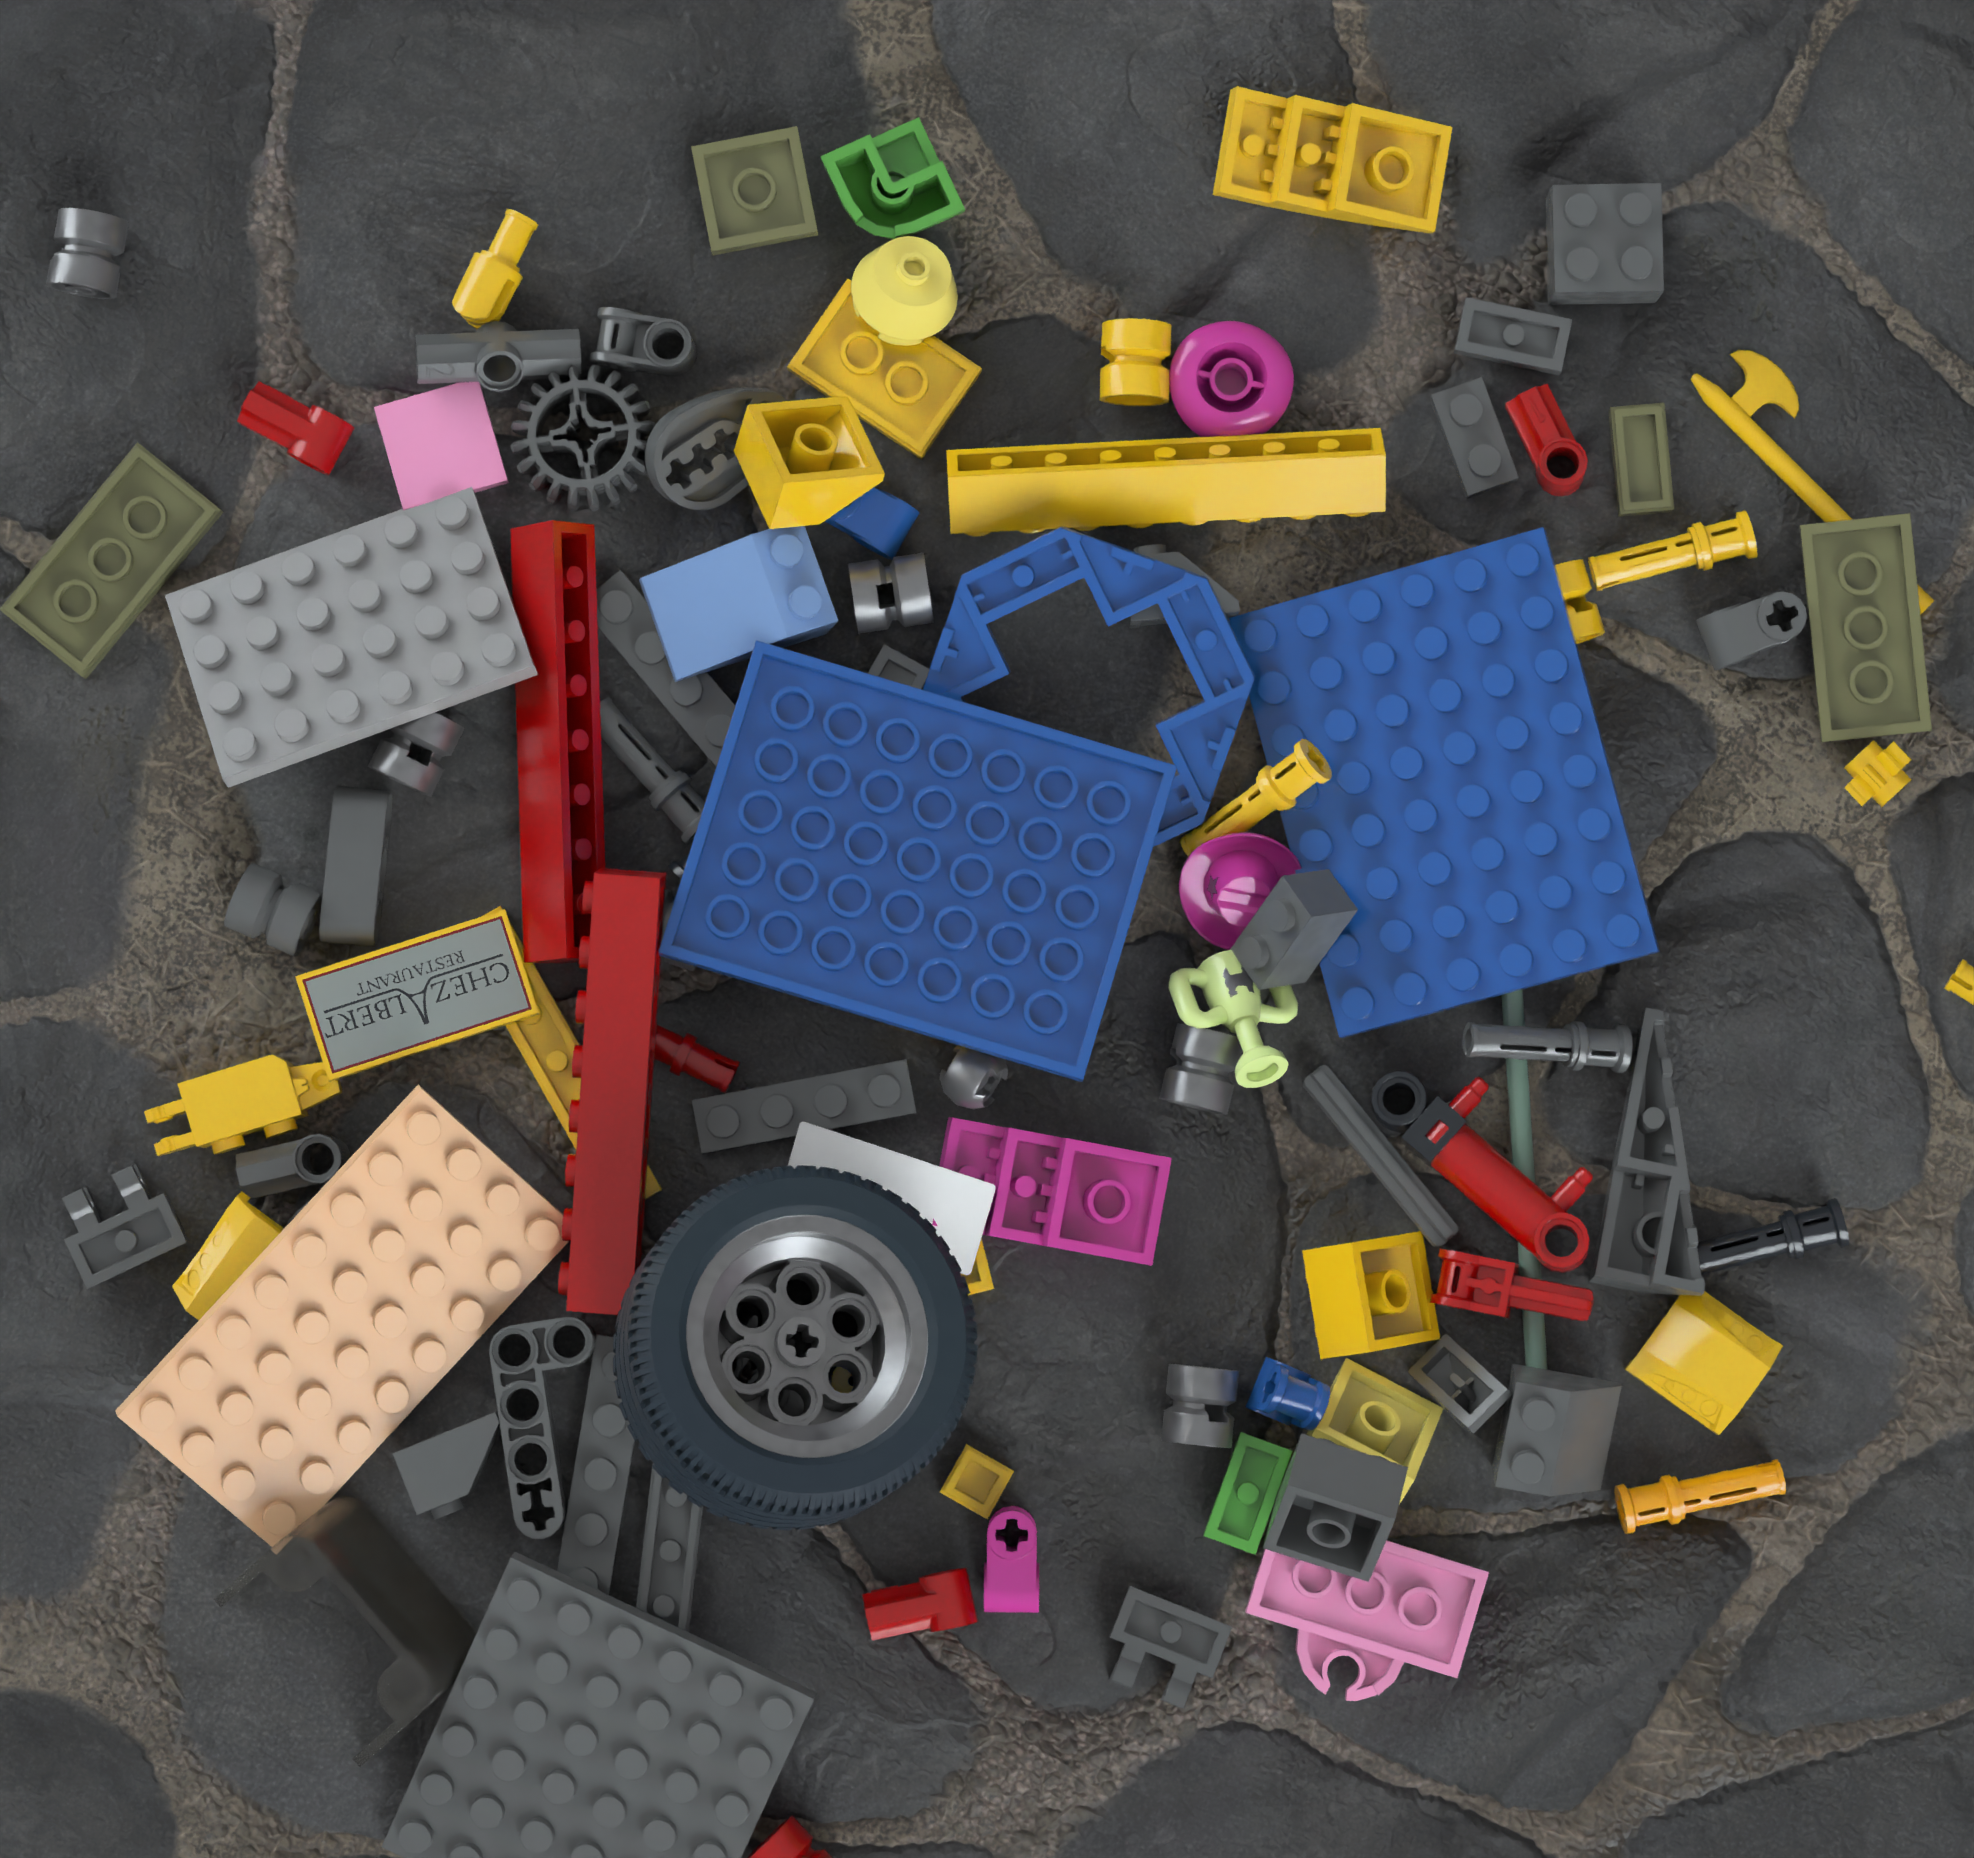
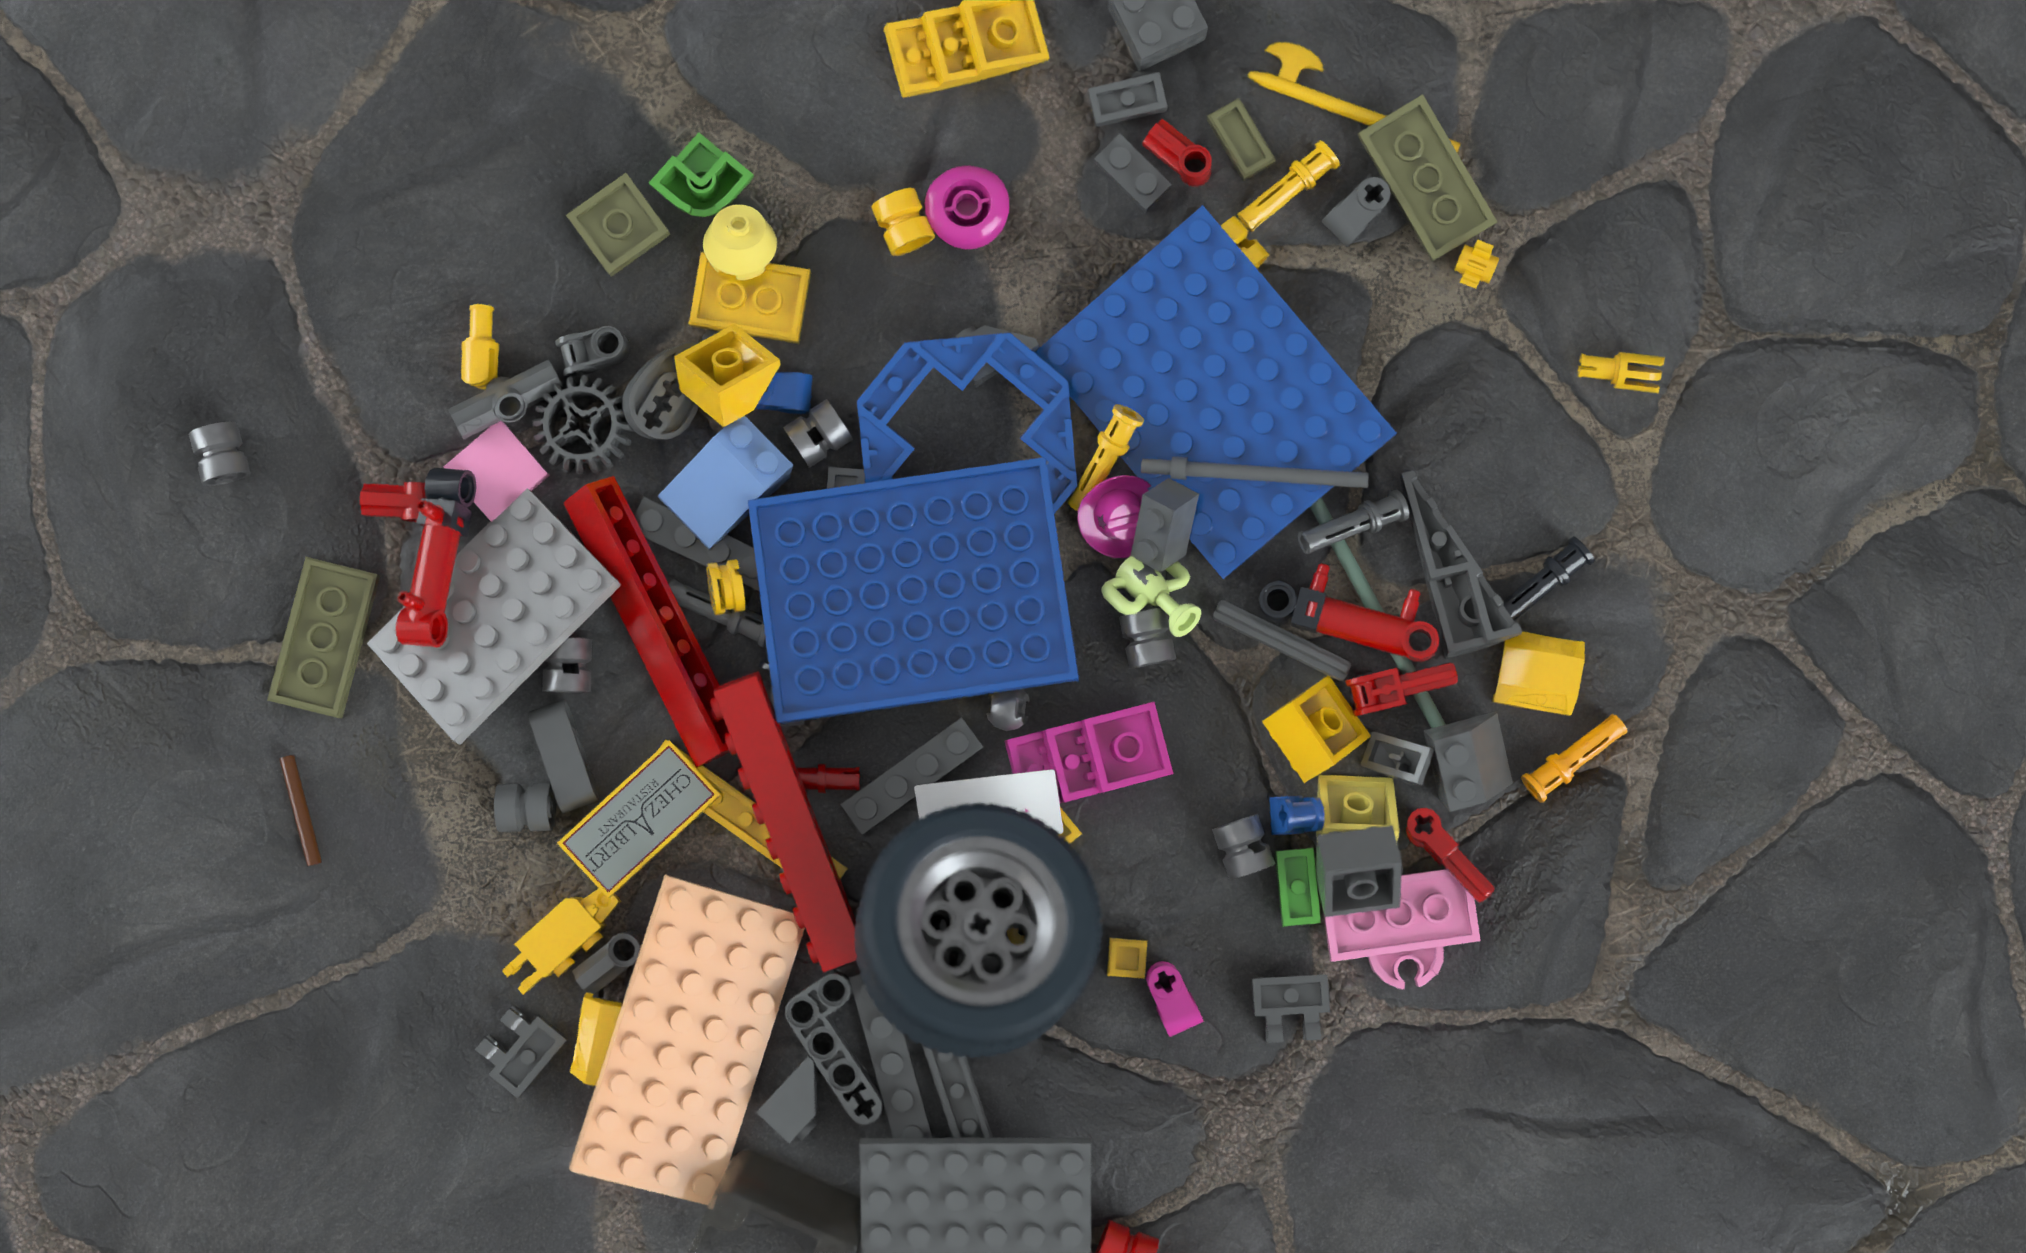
camera: 25 degrees left, 0 degrees up
(341, 482) = (443, 522): none -> red piece
(679, 744) = (730, 587): none -> yellow wheel
(932, 1603) = (1135, 1046): red piece -> none
(1166, 481) = (956, 285): yellow brick -> none
(1351, 864) = (1181, 468): none -> dark grey bar
(1466, 1541) = (1446, 853): none -> red connector

